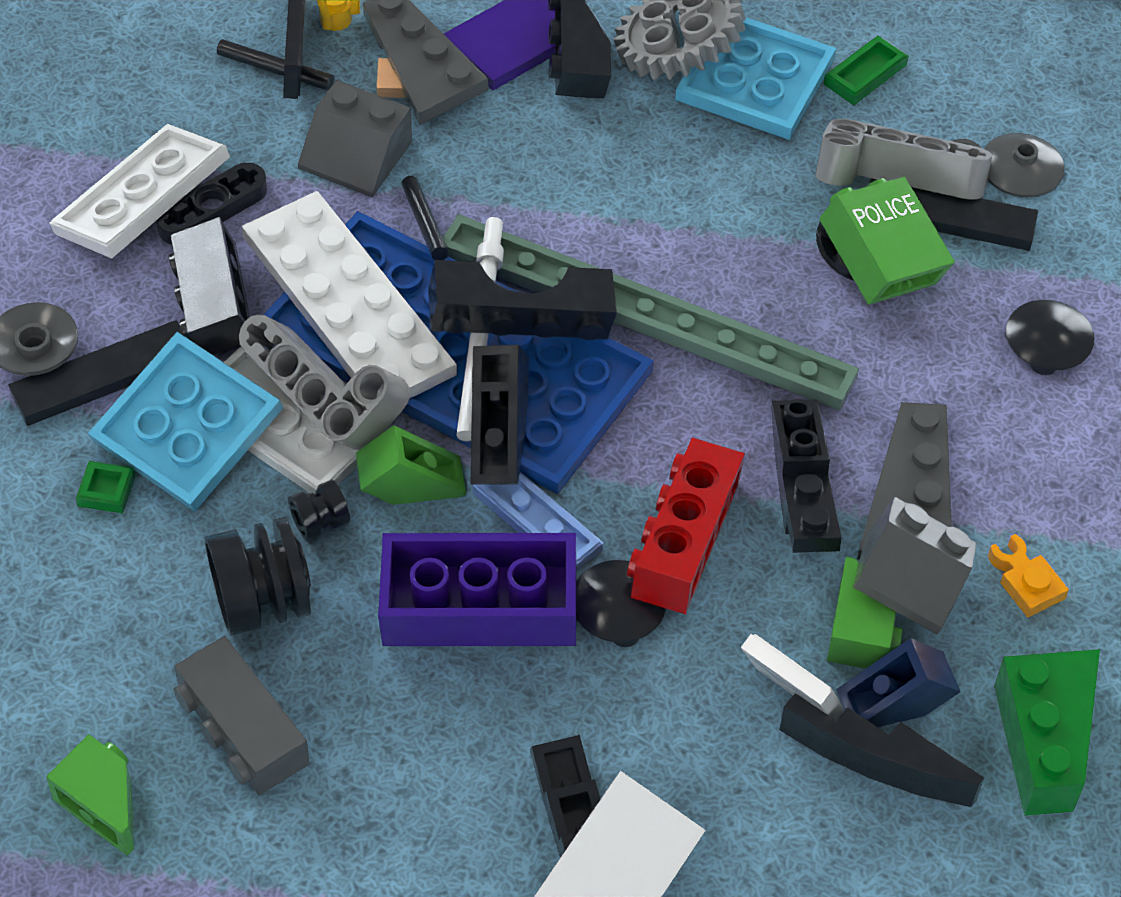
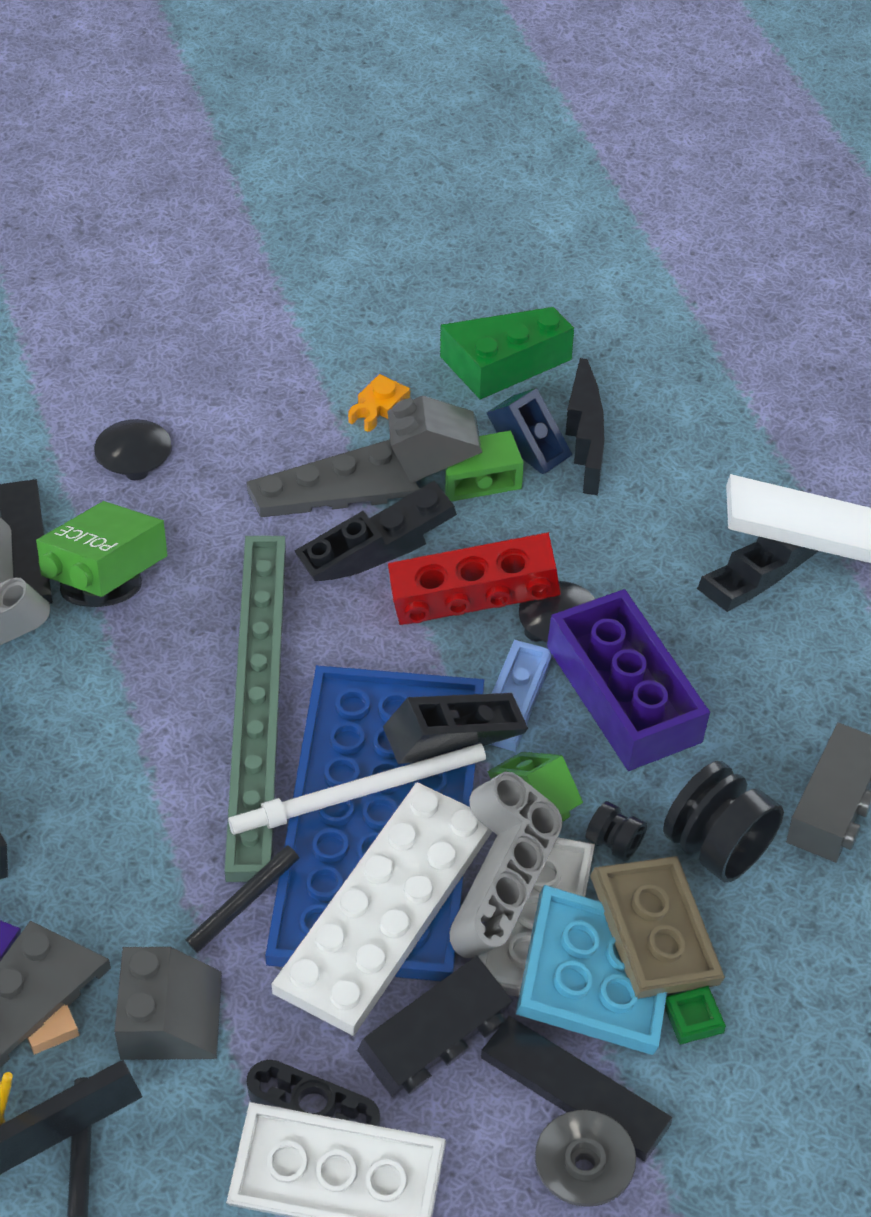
camera: 115 degrees left, 5 degrees down
(195, 481) = (656, 926): none -> dark tan tile
(470, 301) = (358, 779): black arch -> none
(791, 676) = (574, 471): white tile -> none

